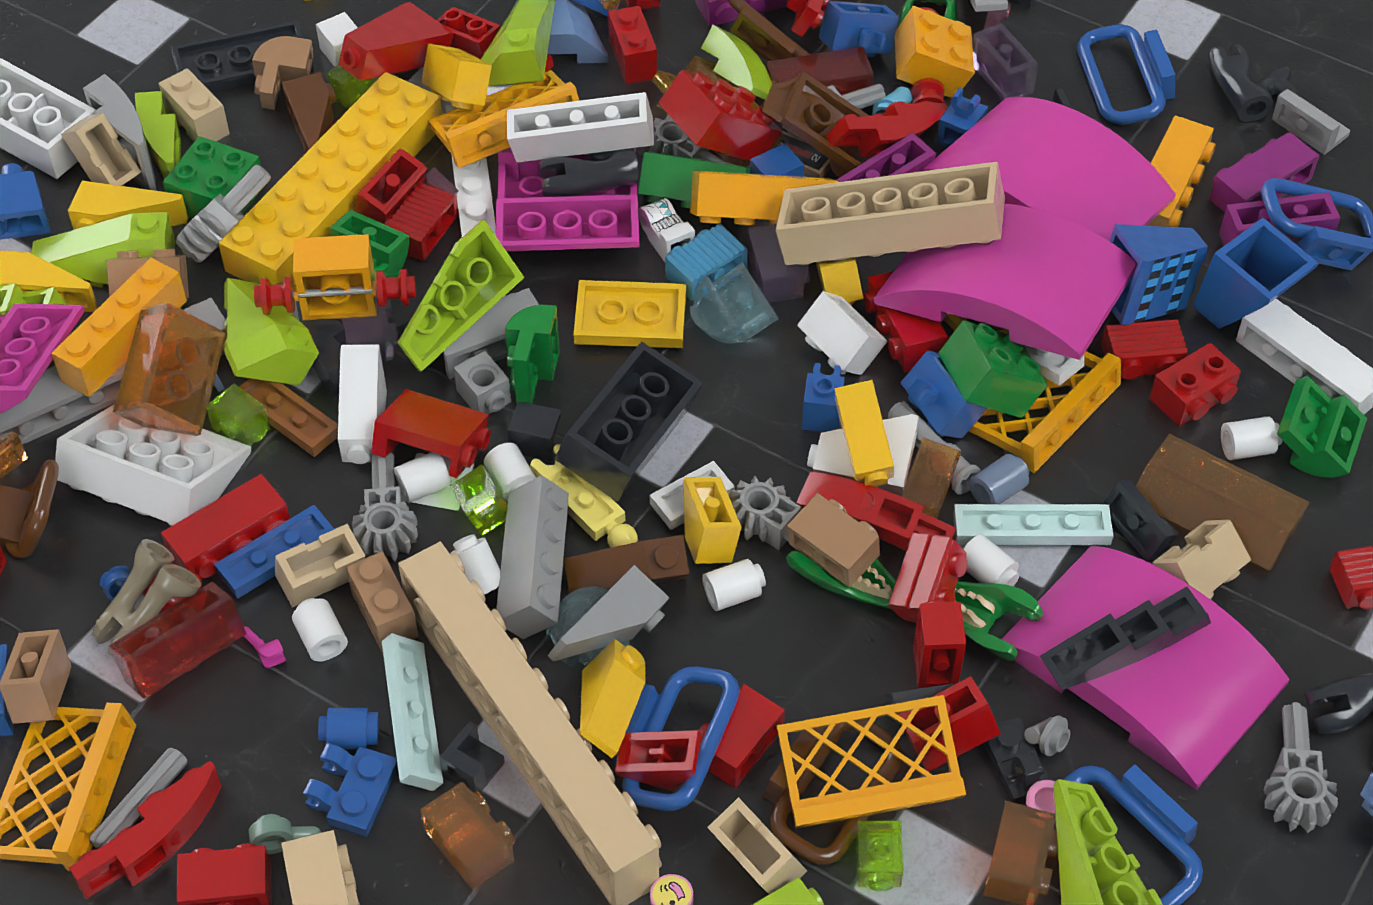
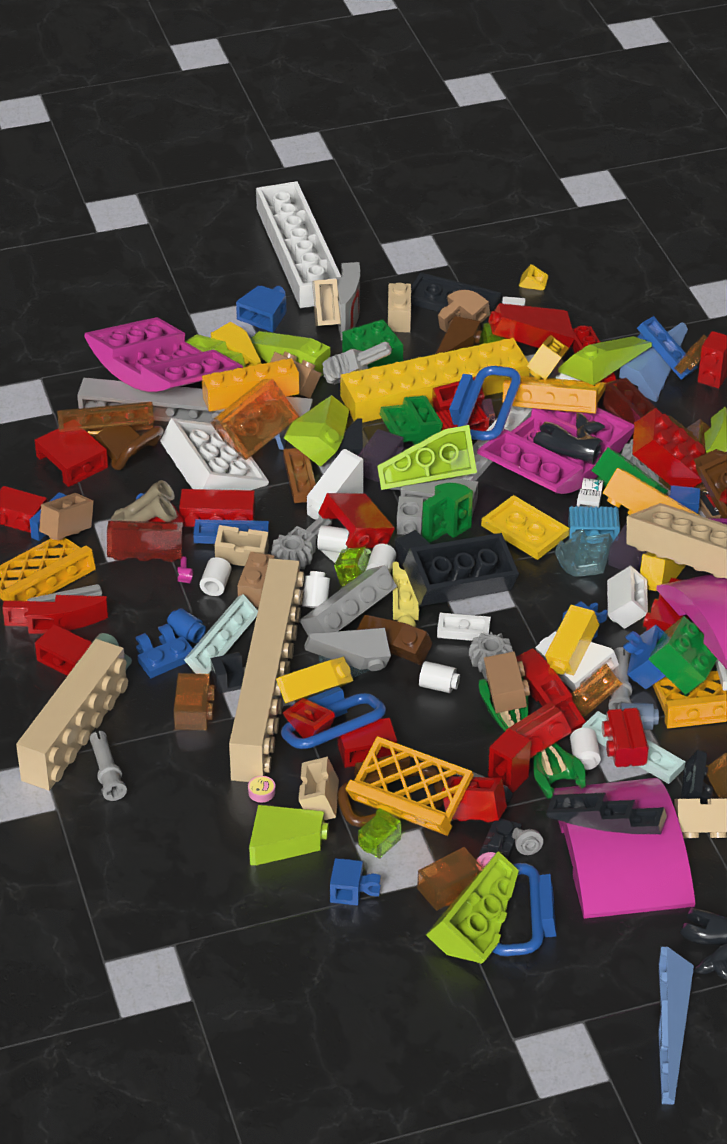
camera: 40 degrees right, 10 degrees down
(103, 202) = (308, 327): yellow slope -> none
(159, 130) = (372, 305): lime slope -> none
(238, 415) = (274, 462): clear neon green brick -> none
(334, 281) = (371, 417): light orange brick -> none
(422, 184) = (467, 395): none -> blue bar
(580, 127) = (577, 412): white brick -> none
(605, 78) = (626, 401): none -> clear red brick
(632, 44) = (674, 394): red brick -> none
(709, 520) = (455, 639): yellow slope -> none
(1031, 519) = (625, 737): none -> red brick
(1302, 773) = (638, 946): light grey gear -> none

